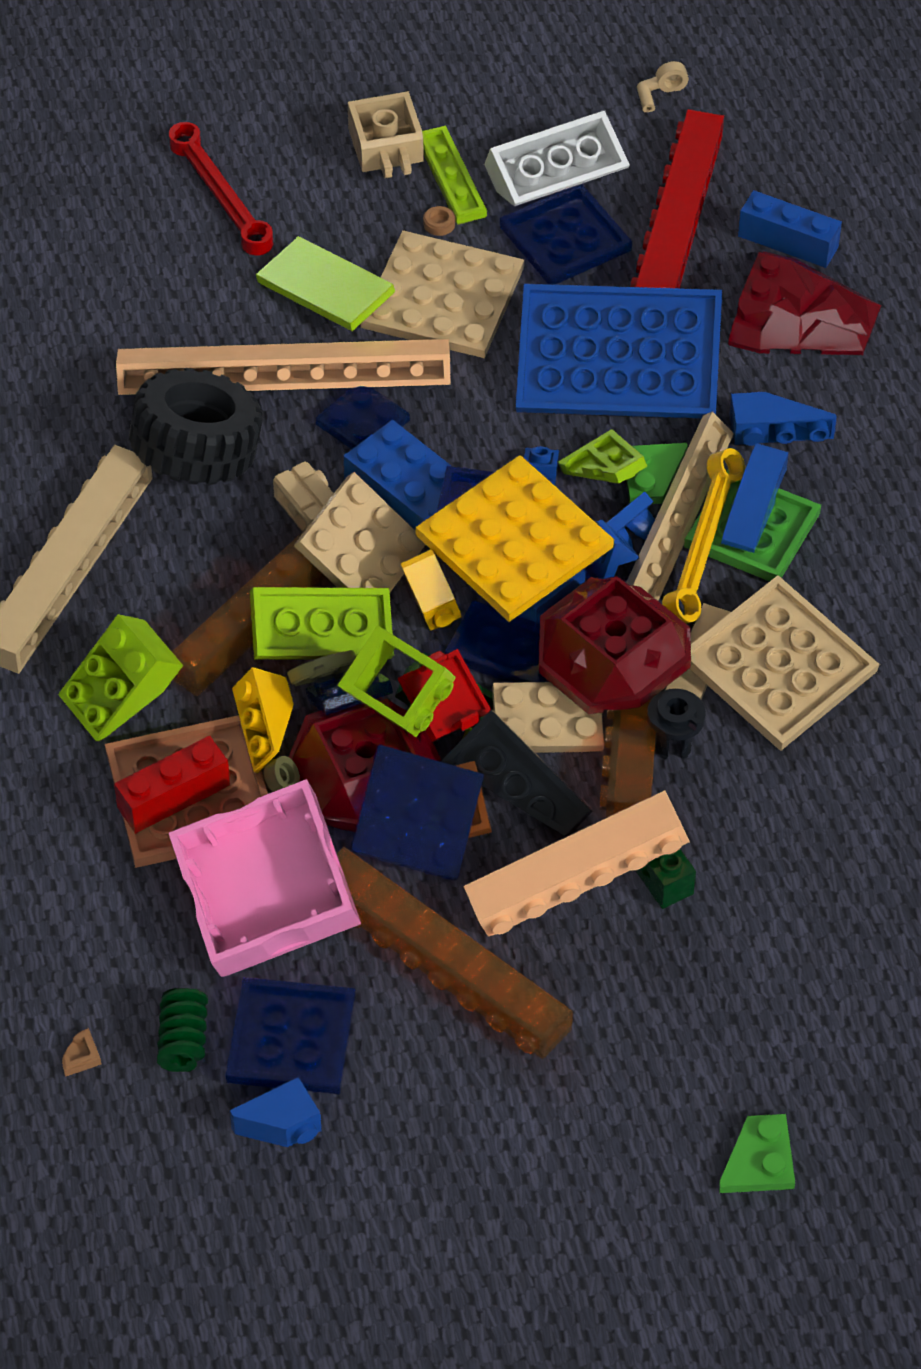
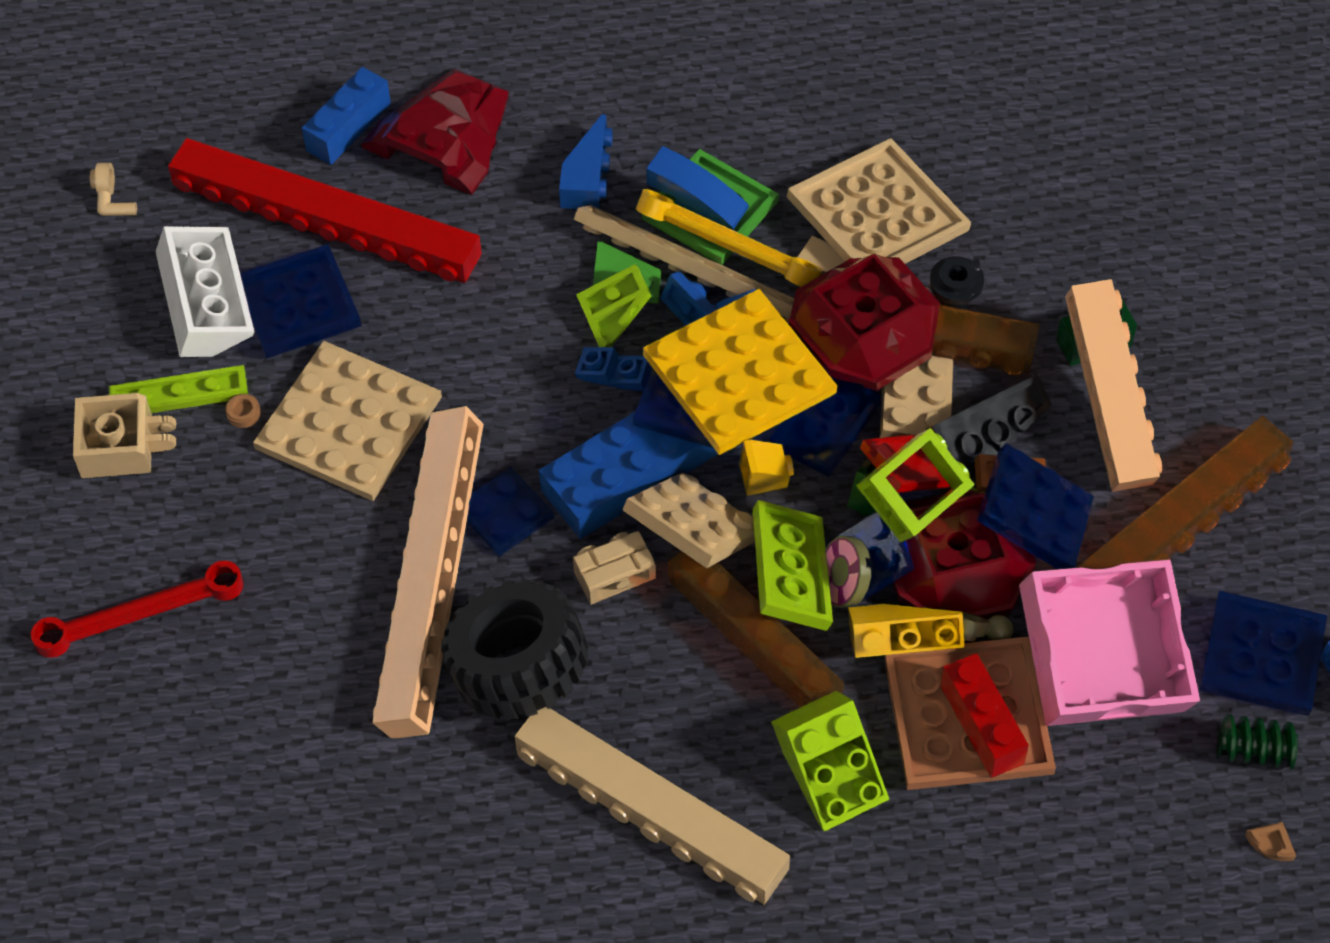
camera: 80 degrees left, 5 degrees up
(325, 283) = (315, 519): lime tile -> none
(619, 351) = (486, 269): blue plate -> none

